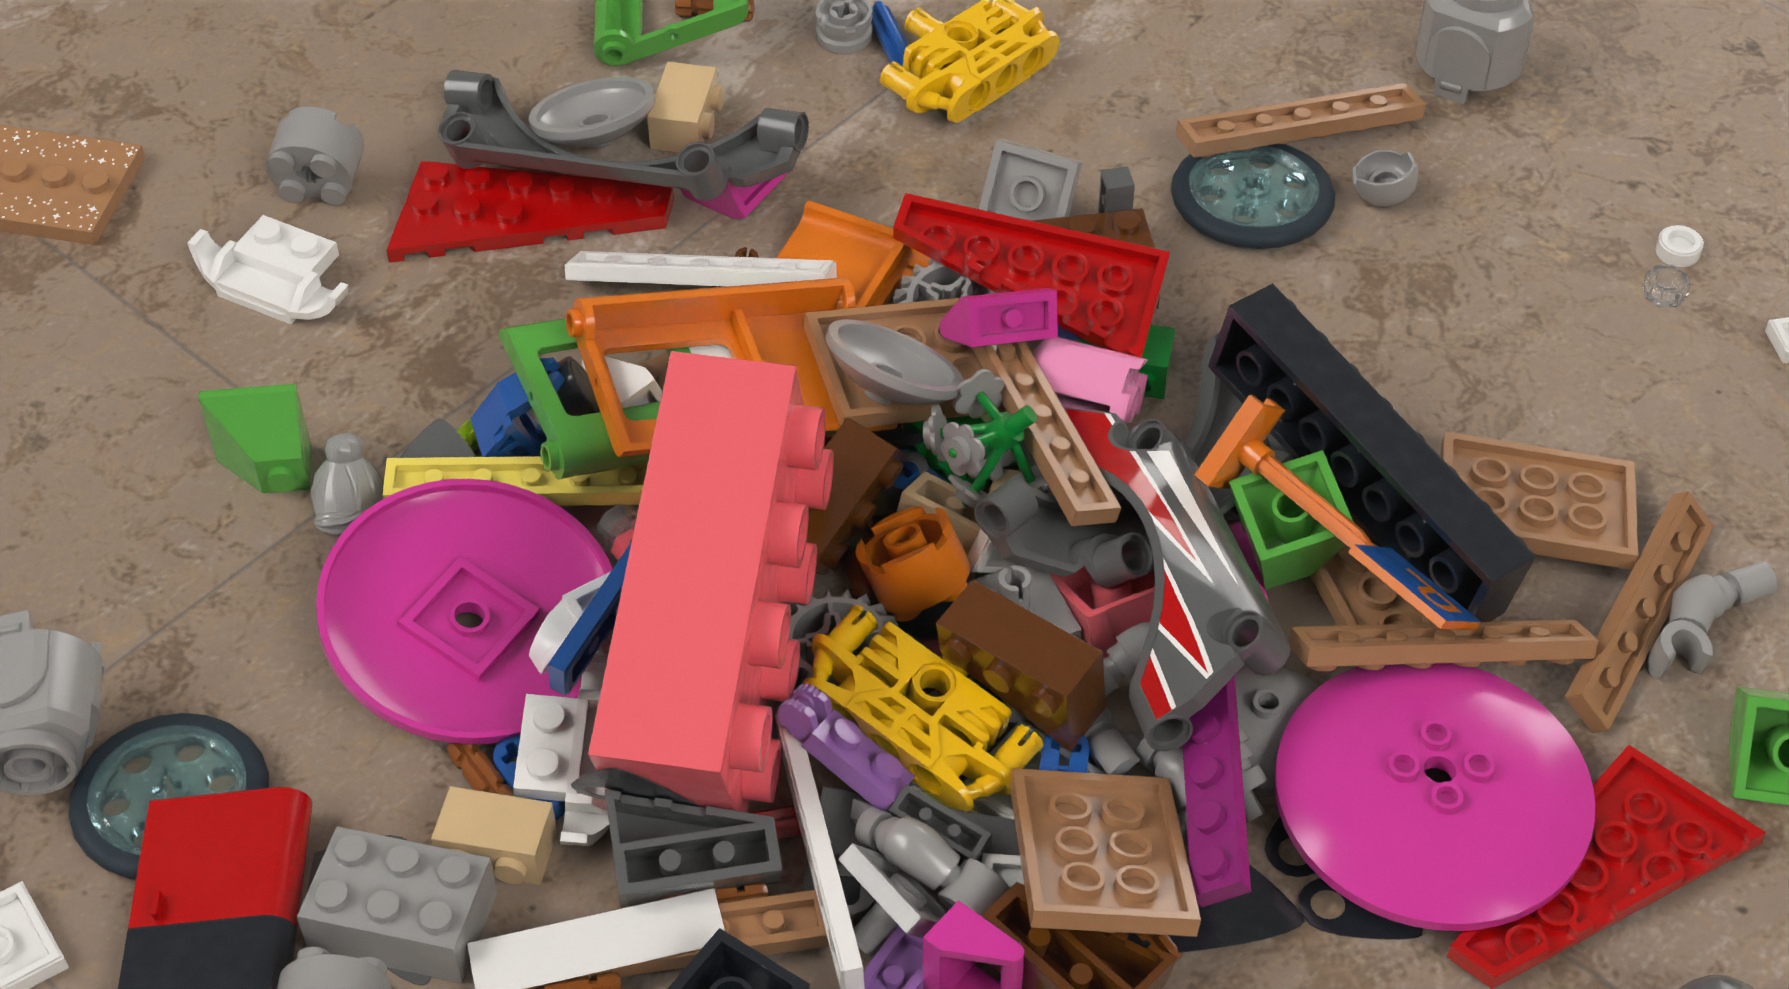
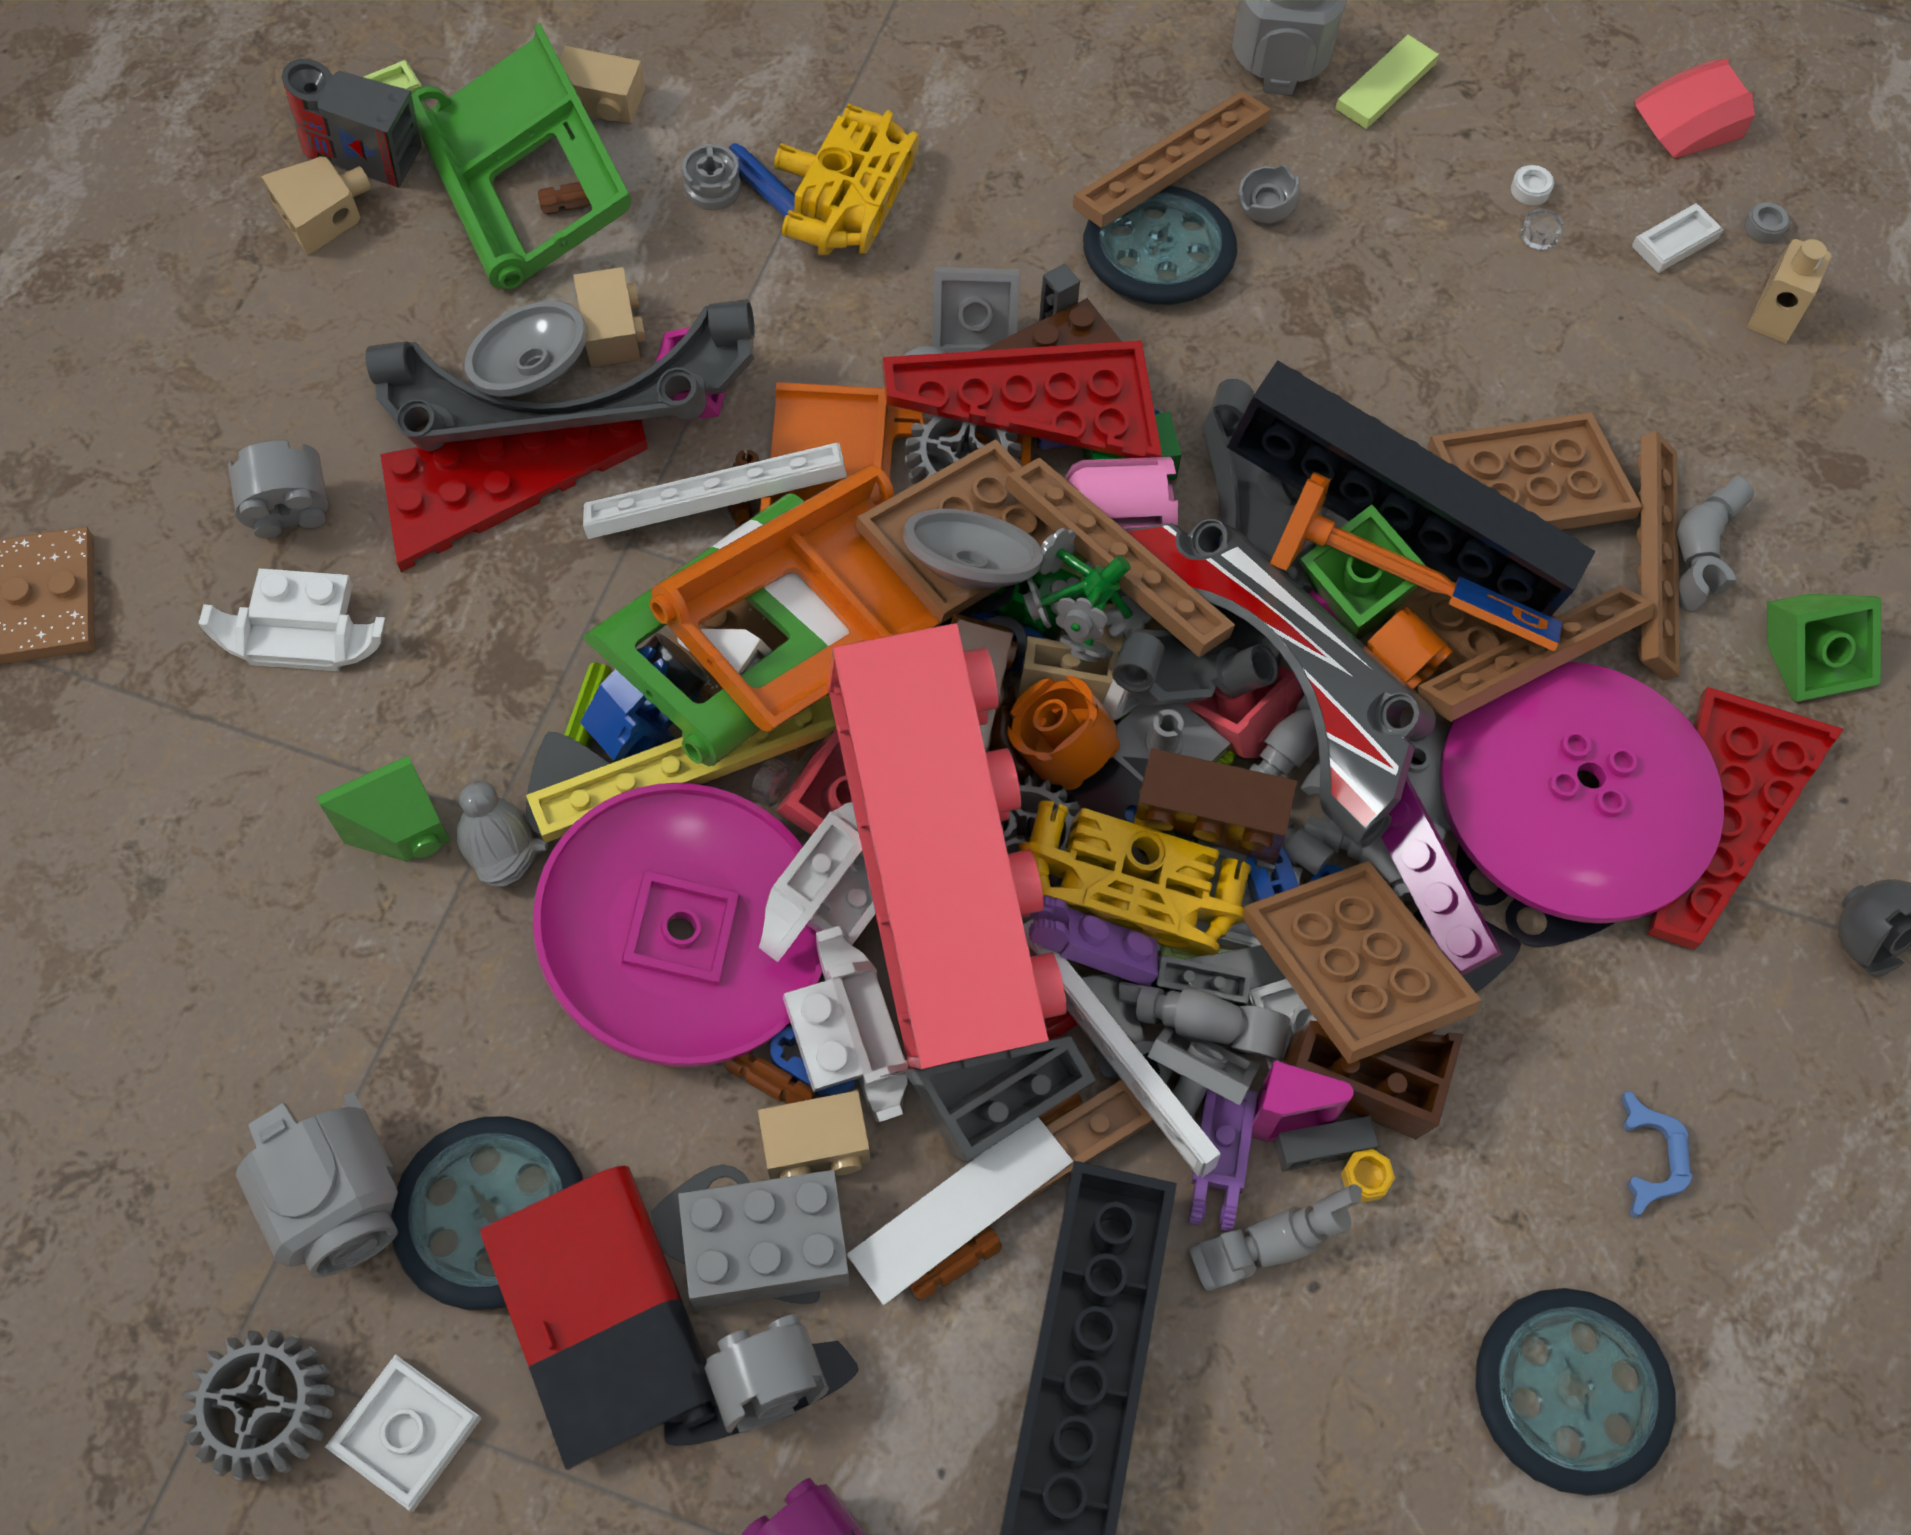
camera: 25 degrees left, 15 degrees up
(588, 632) = (826, 879): blue tile -> none
(1002, 318) = (1041, 468): dark pink tile -> none
(1304, 595) = (1409, 648): none -> orange brick
(1568, 116) = (1386, 81): none -> yellowish green tile

